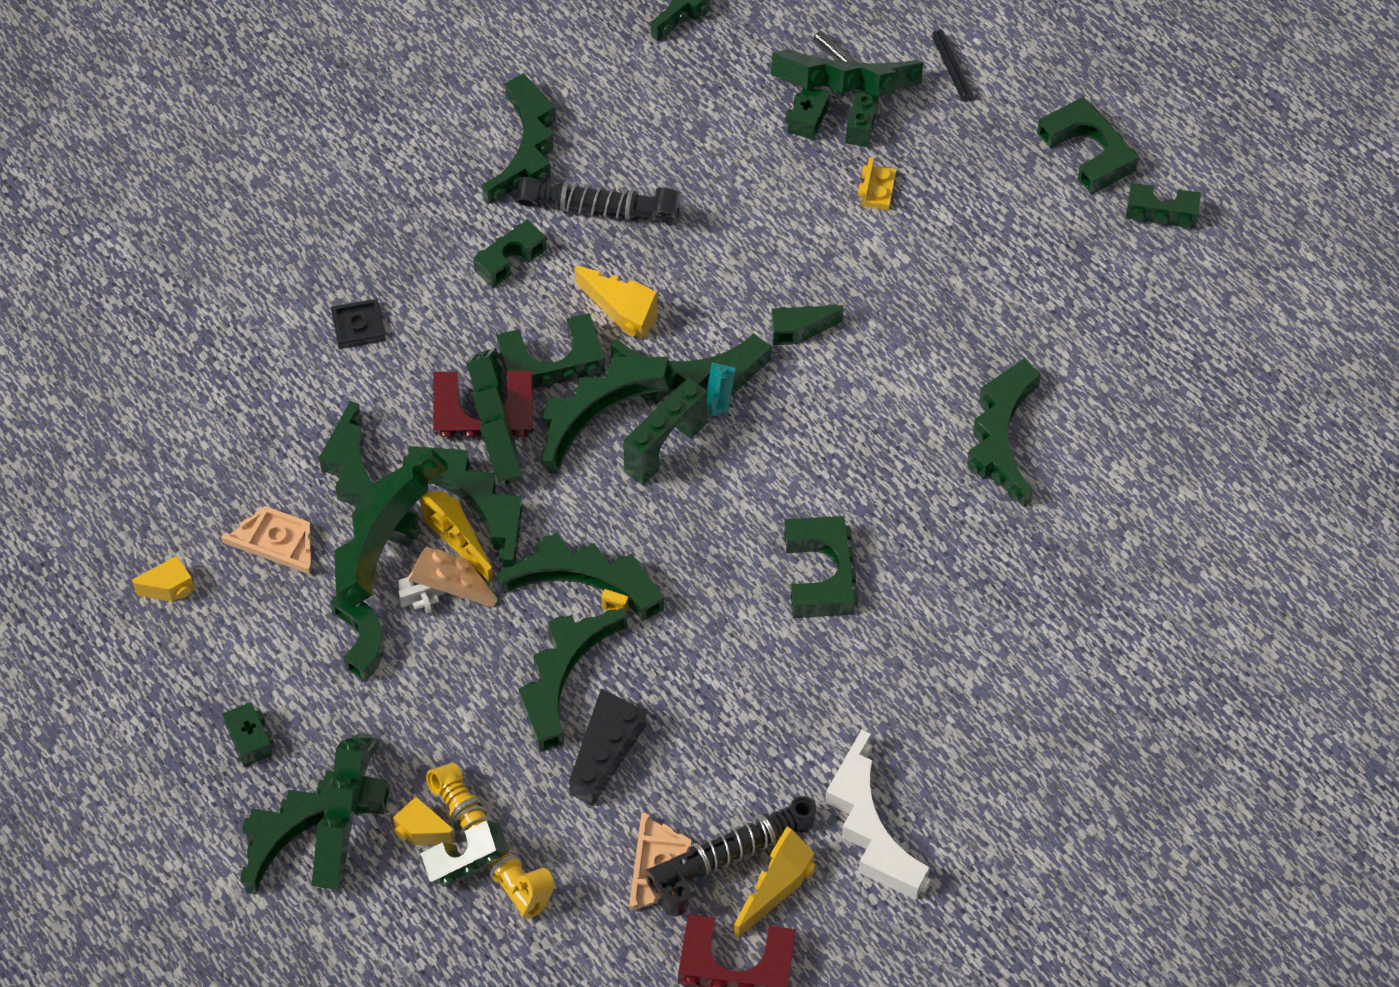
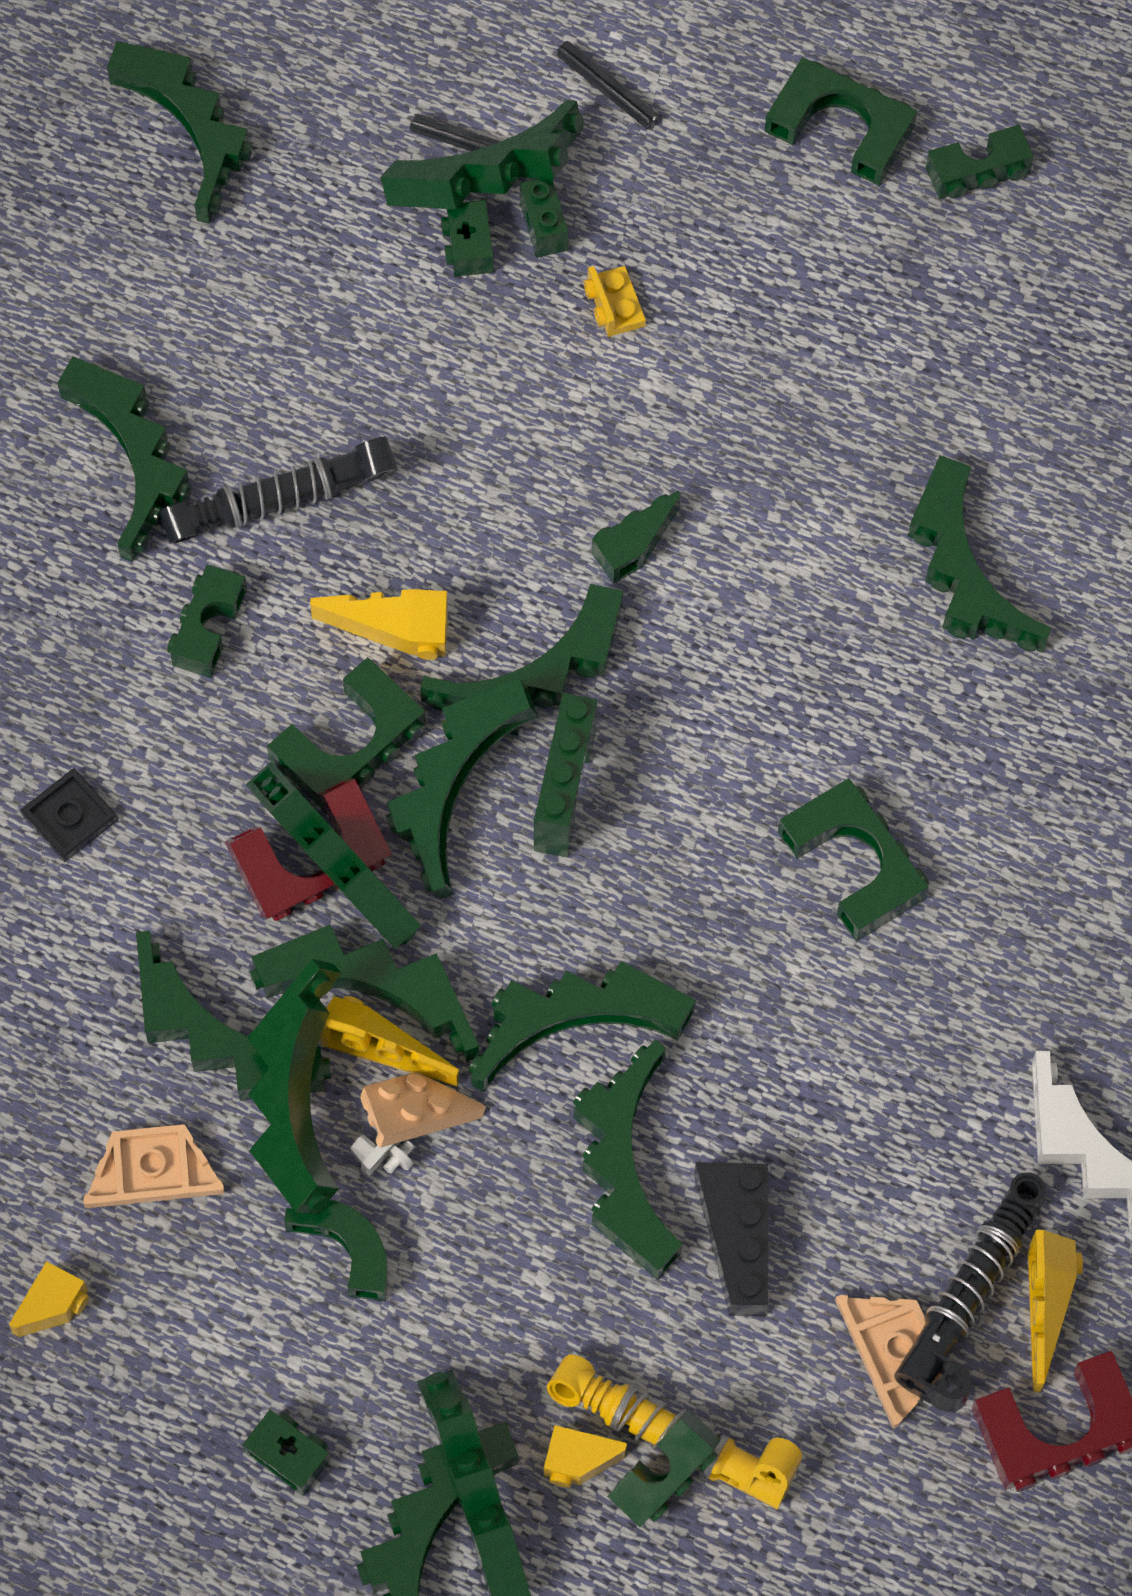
camera: 30 degrees left, 10 degrees up
(614, 600) = (634, 1035): yellow tile -> none
(719, 388) = (592, 678): teal hinge -> none

